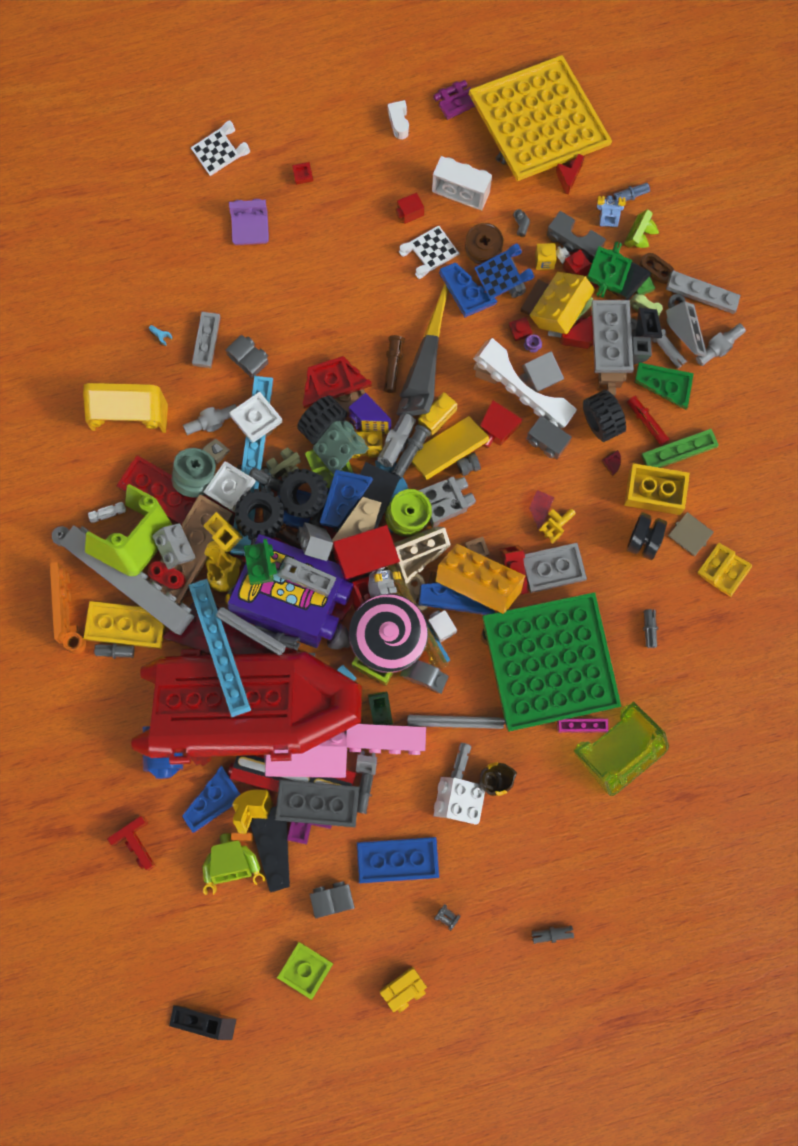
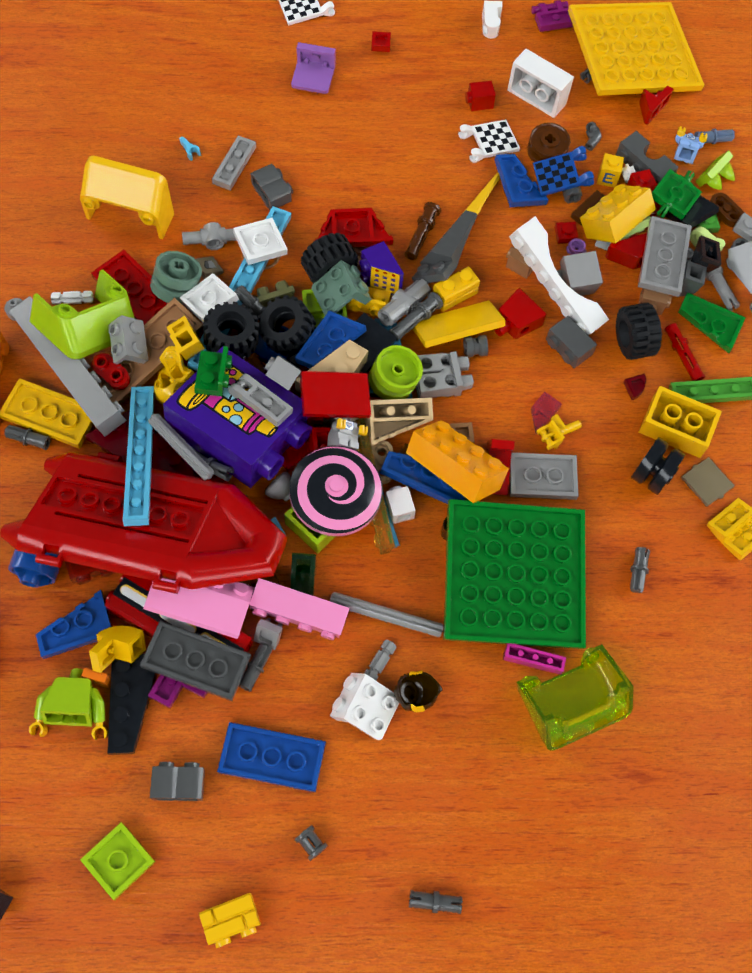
camera: 10 degrees right, 10 degrees down
(426, 675) = (366, 550): dark grey brick -> none

